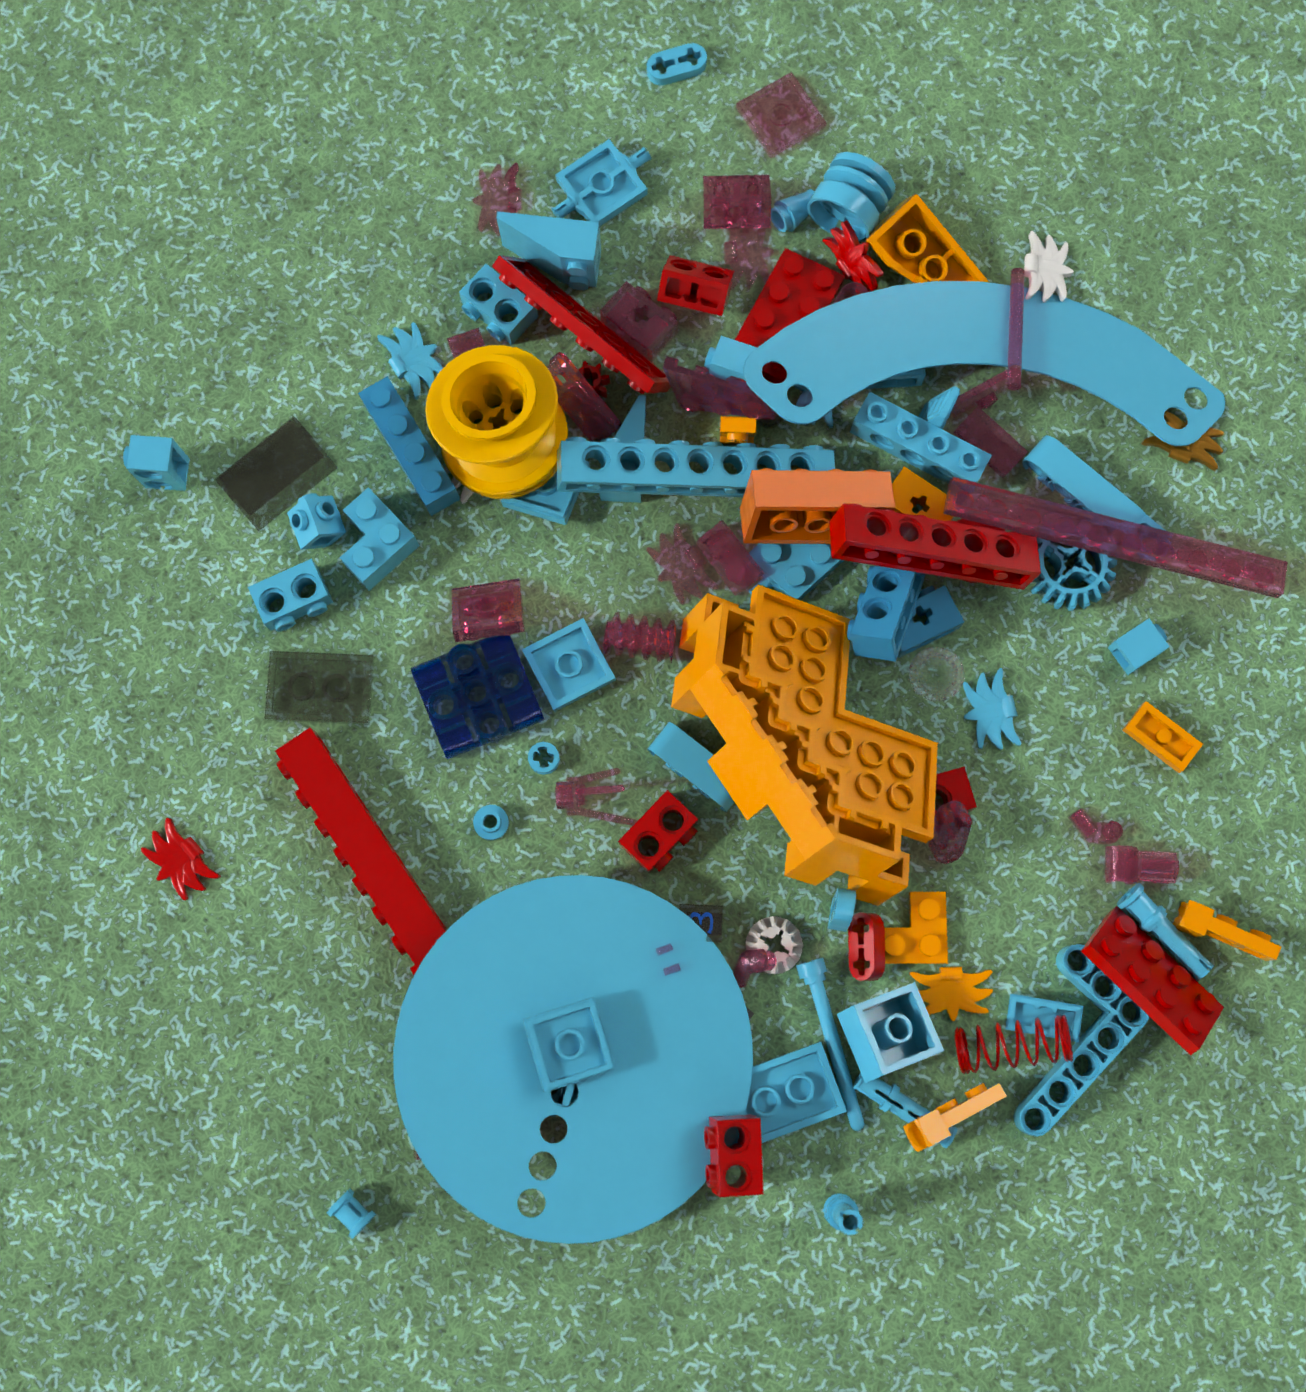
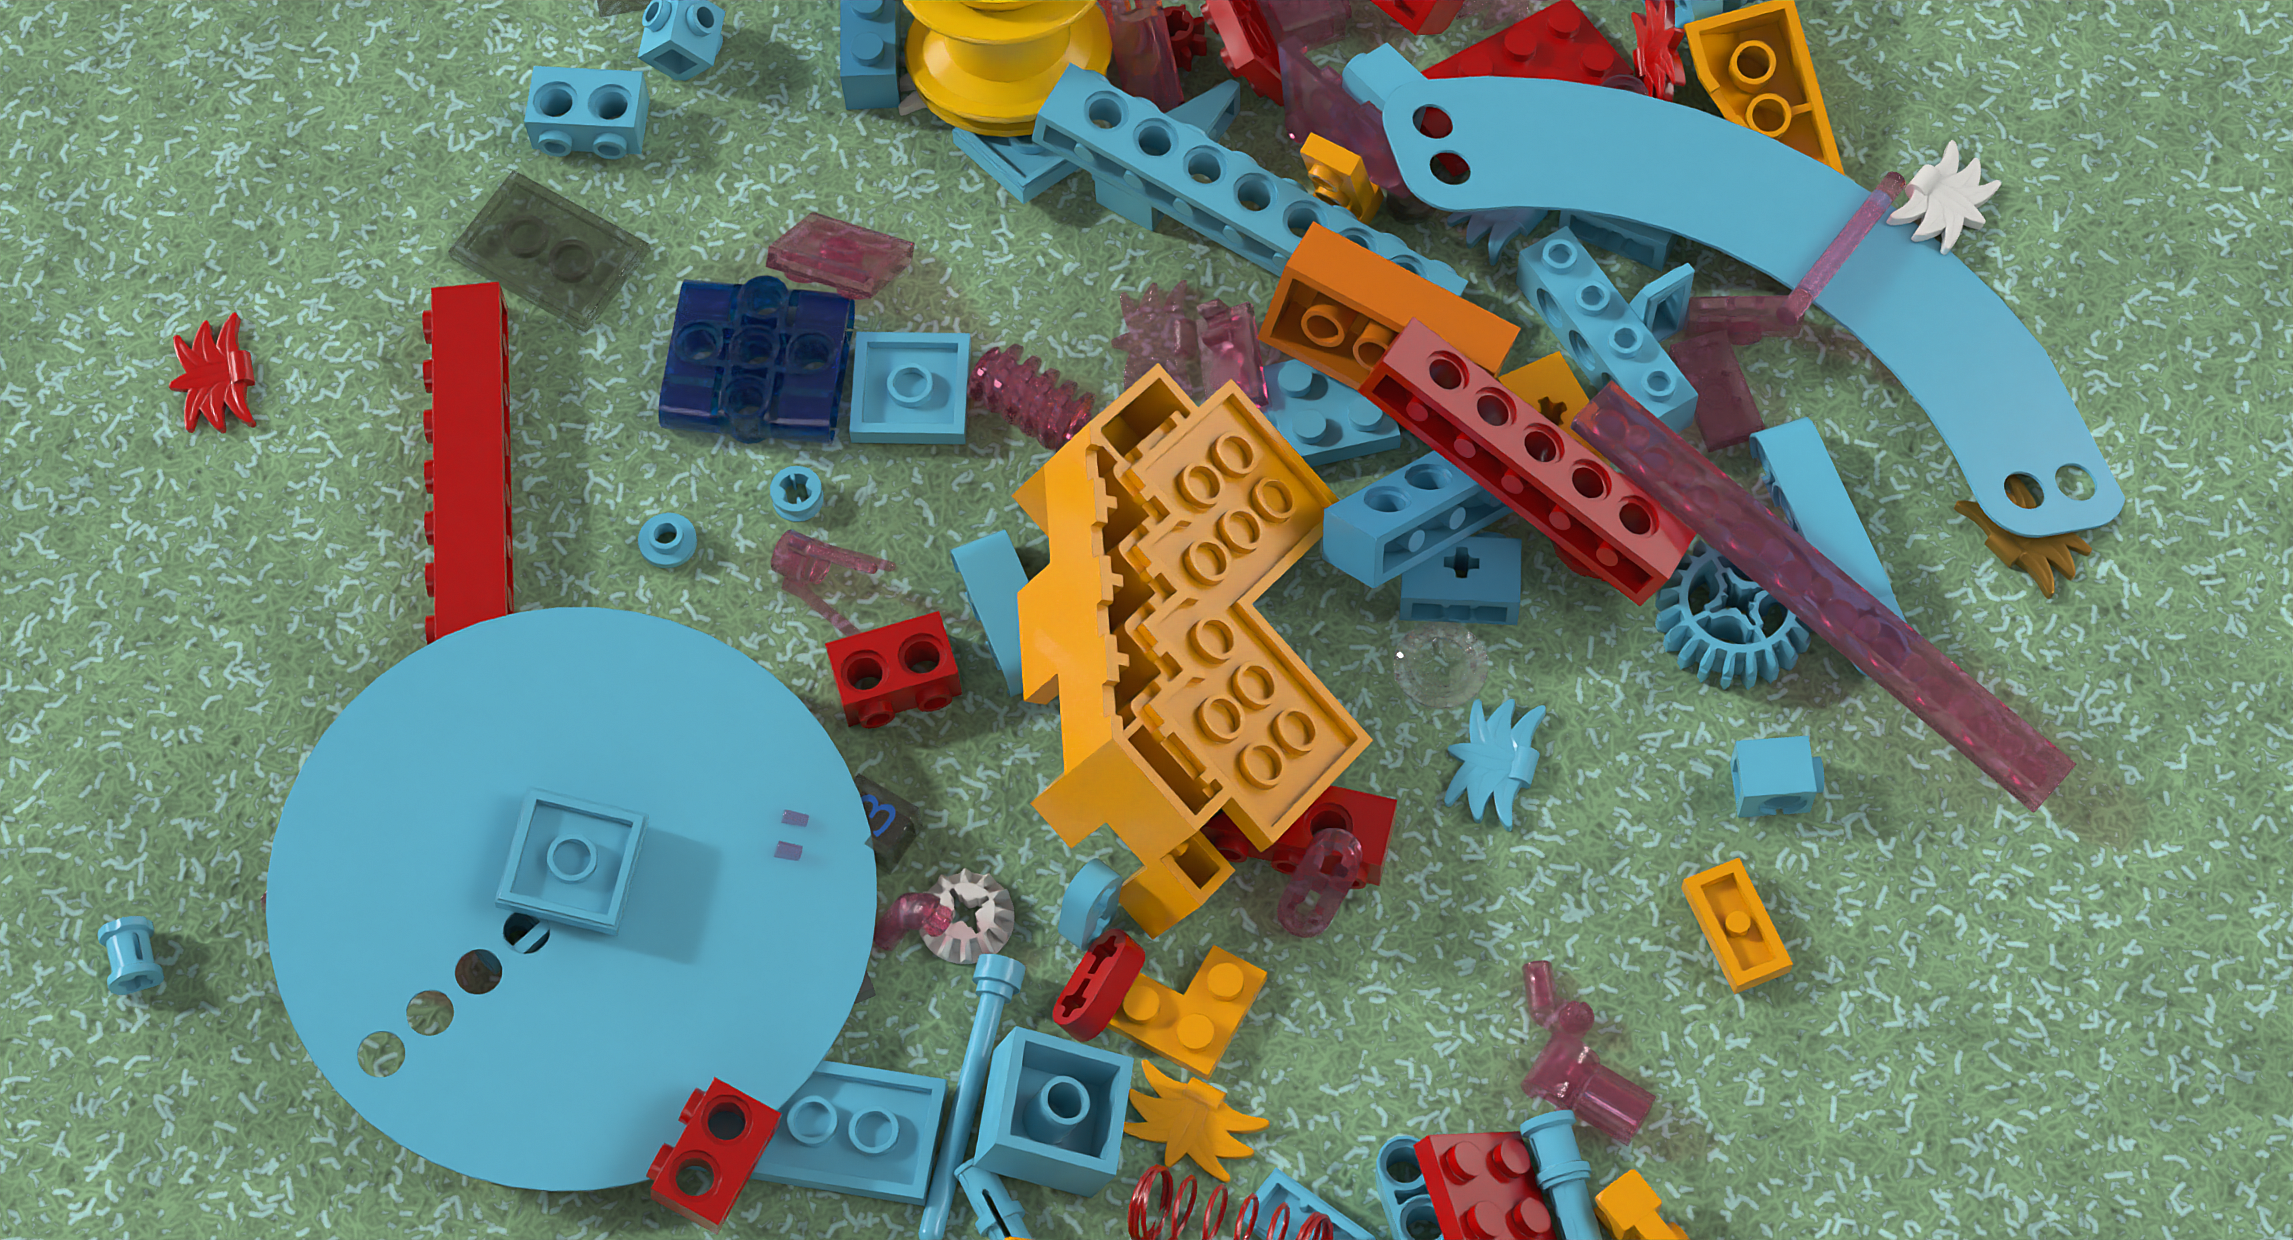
camera: 30 degrees right, 15 degrees down
(383, 542) = (753, 104): medium azure brick -> none

